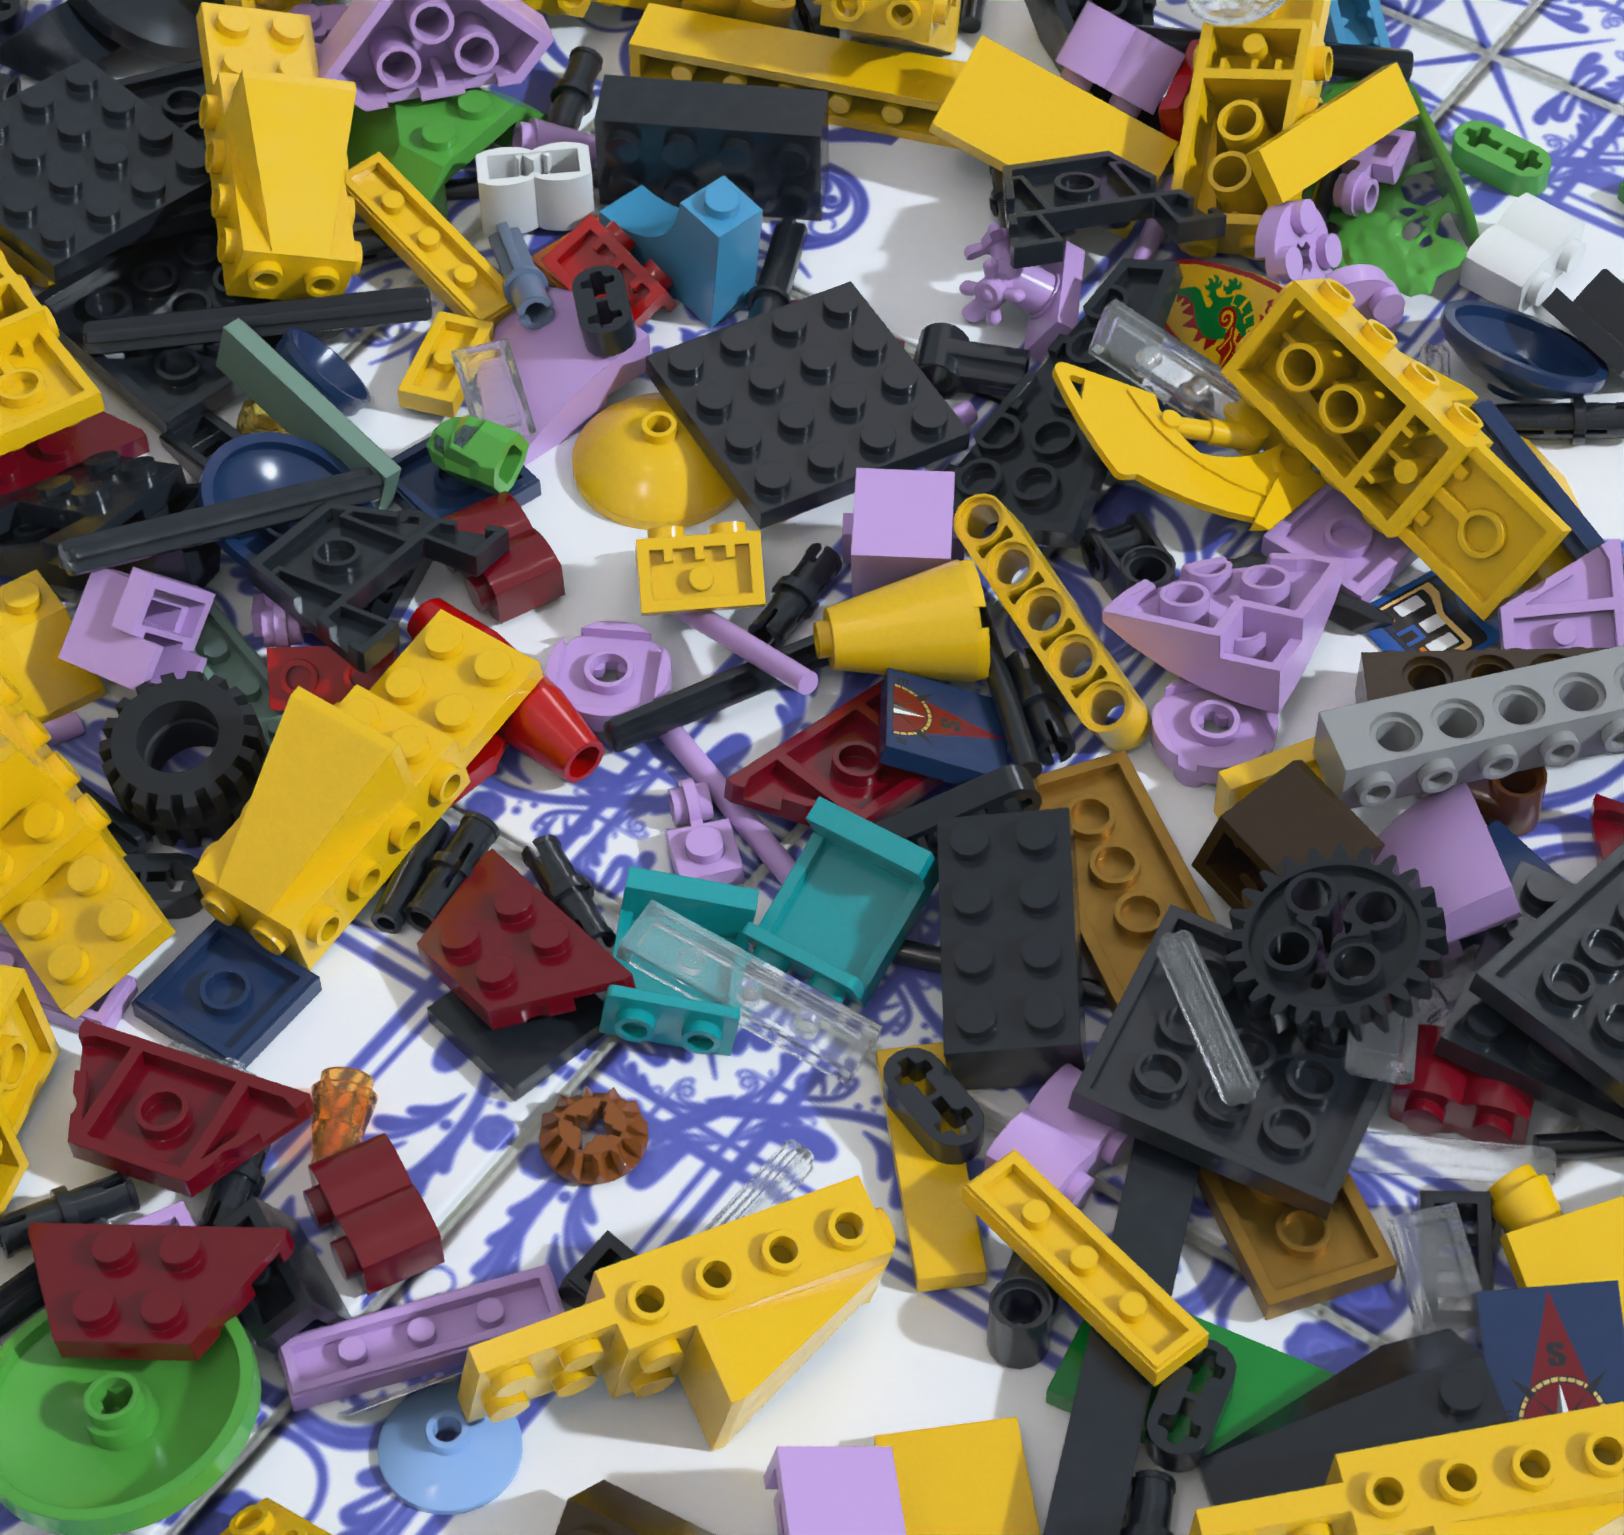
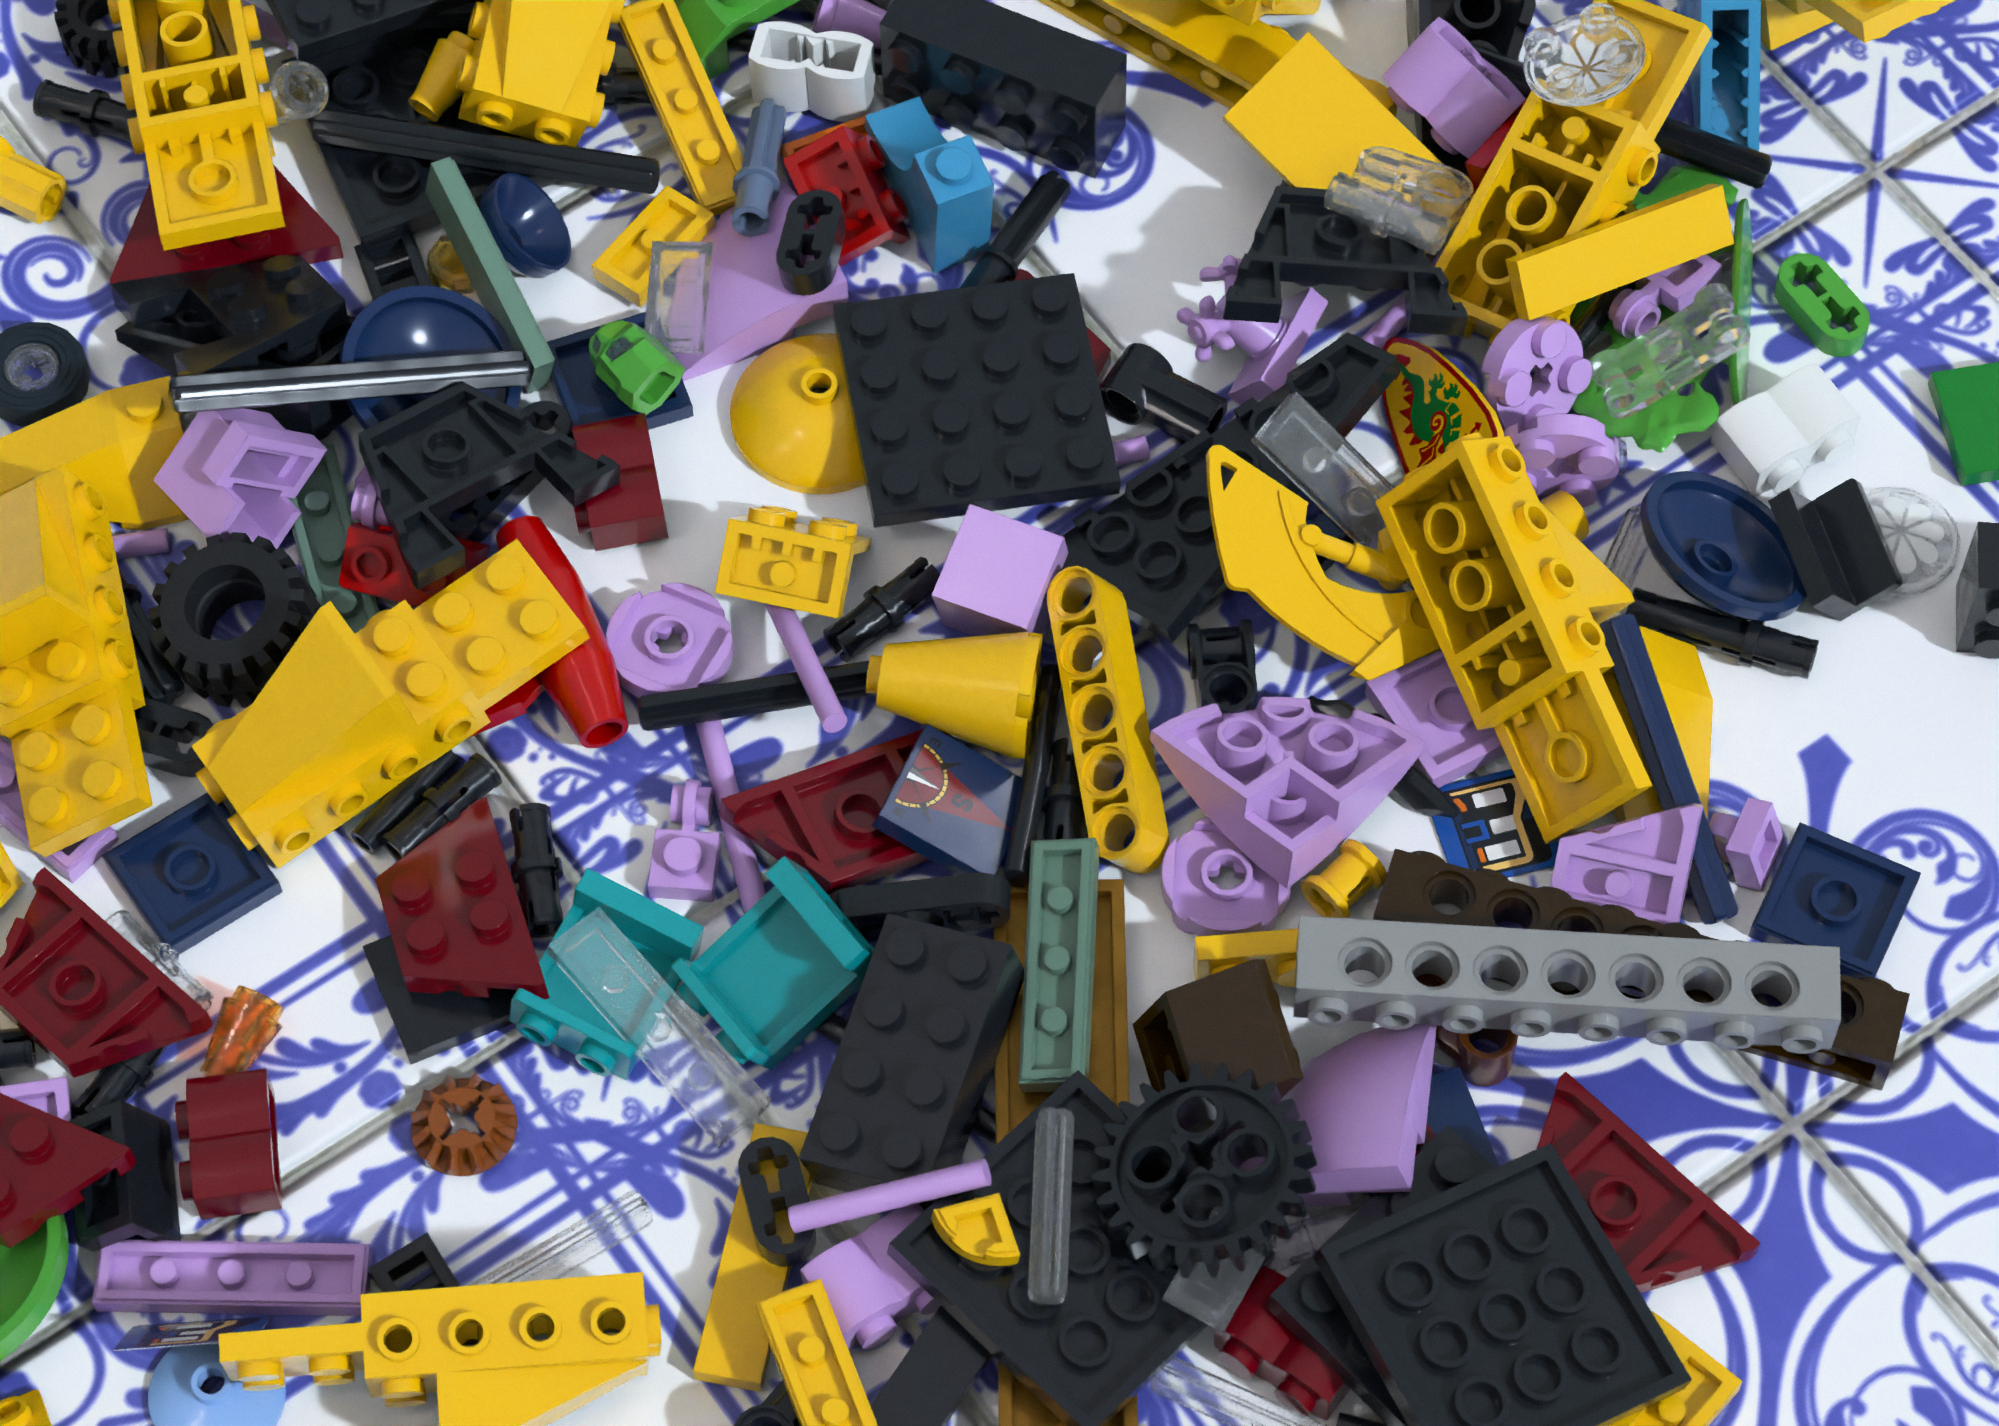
camera: 20 degrees right, 10 degrees up
(69, 303) = (298, 91): none -> clear cone
(195, 268) = (437, 85): none -> yellow cone
(1050, 1054) = (889, 1195): none -> lavender bar
(1105, 828) = (1058, 963): none -> sand green tile
(1114, 157) = (1387, 213): none -> clear pin
(1121, 137) = (1417, 180): none -> clear piece
(1151, 1057) = (978, 1231): none -> yellow tile
(1325, 688) = (1344, 881): none -> yellow bush
(1408, 206) = (1670, 352): none -> clear plate

